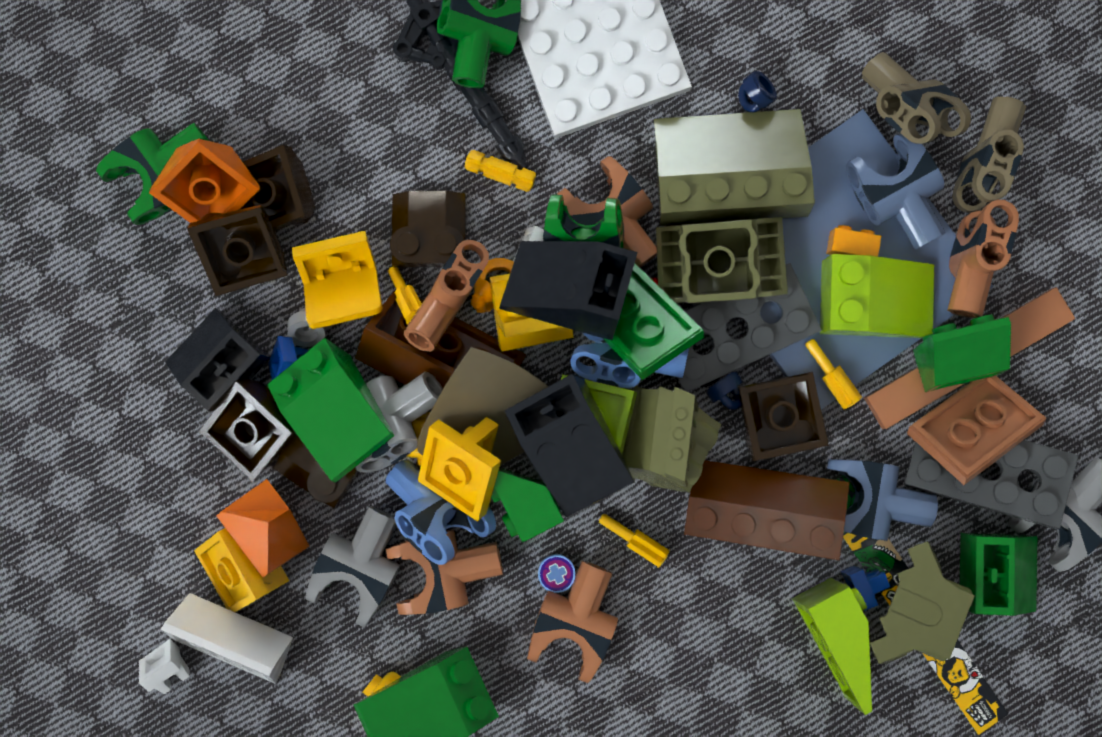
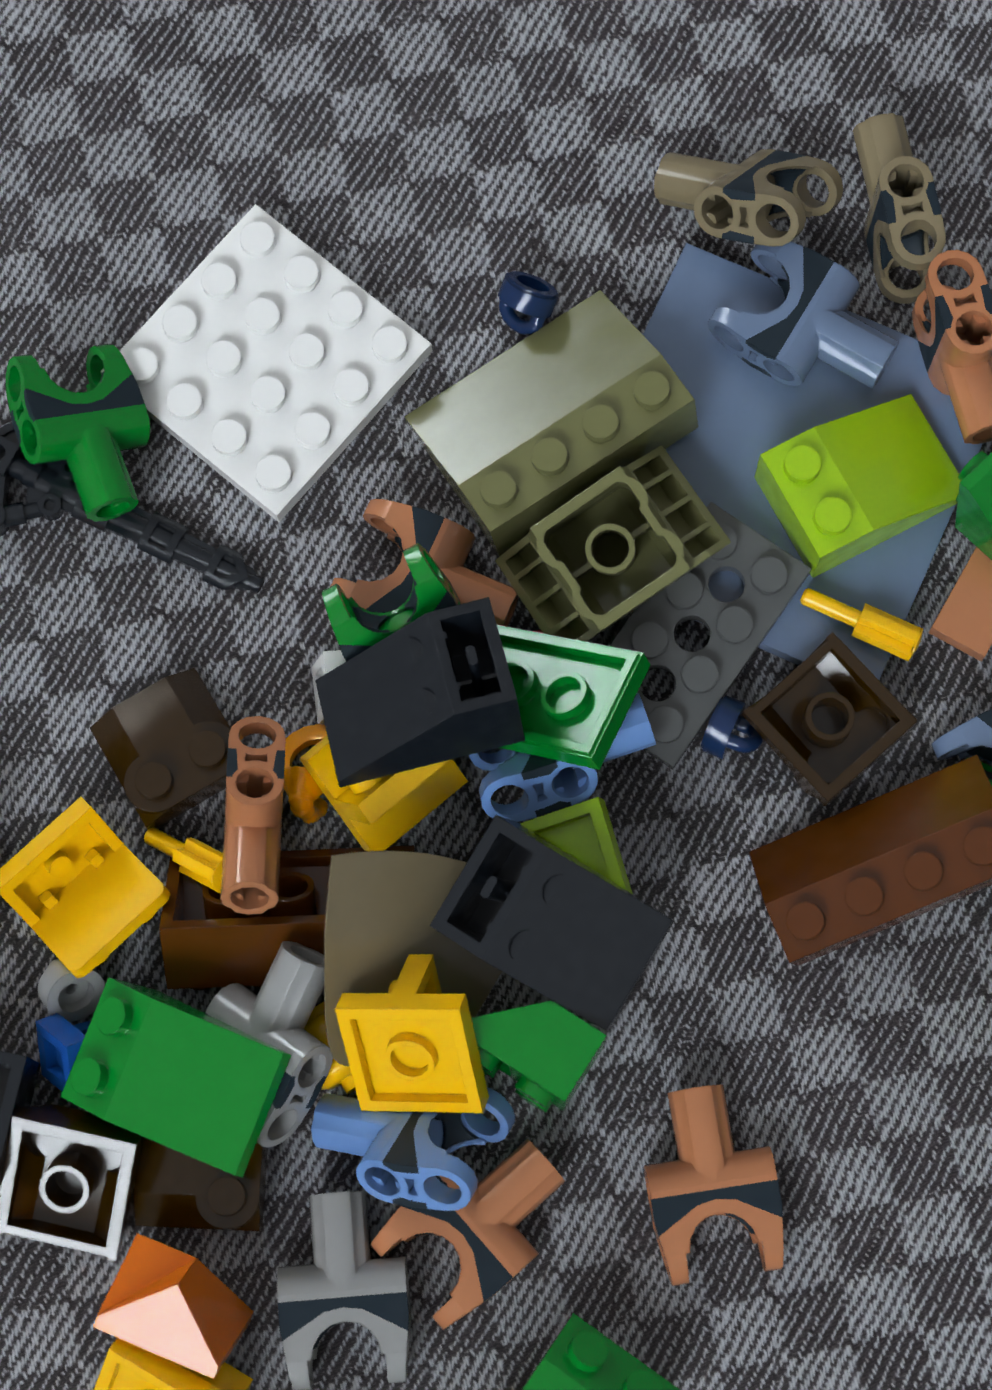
camera: 25 degrees left, 10 degrees down
(500, 170) = (227, 607): yellow axle -> none
(556, 573) = (642, 1135): tile -> none
(637, 541) = (732, 1019): yellow axle -> none
(668, 438) = (686, 836): olive slope -> none
(849, 242) = (769, 428): light orange piece -> none

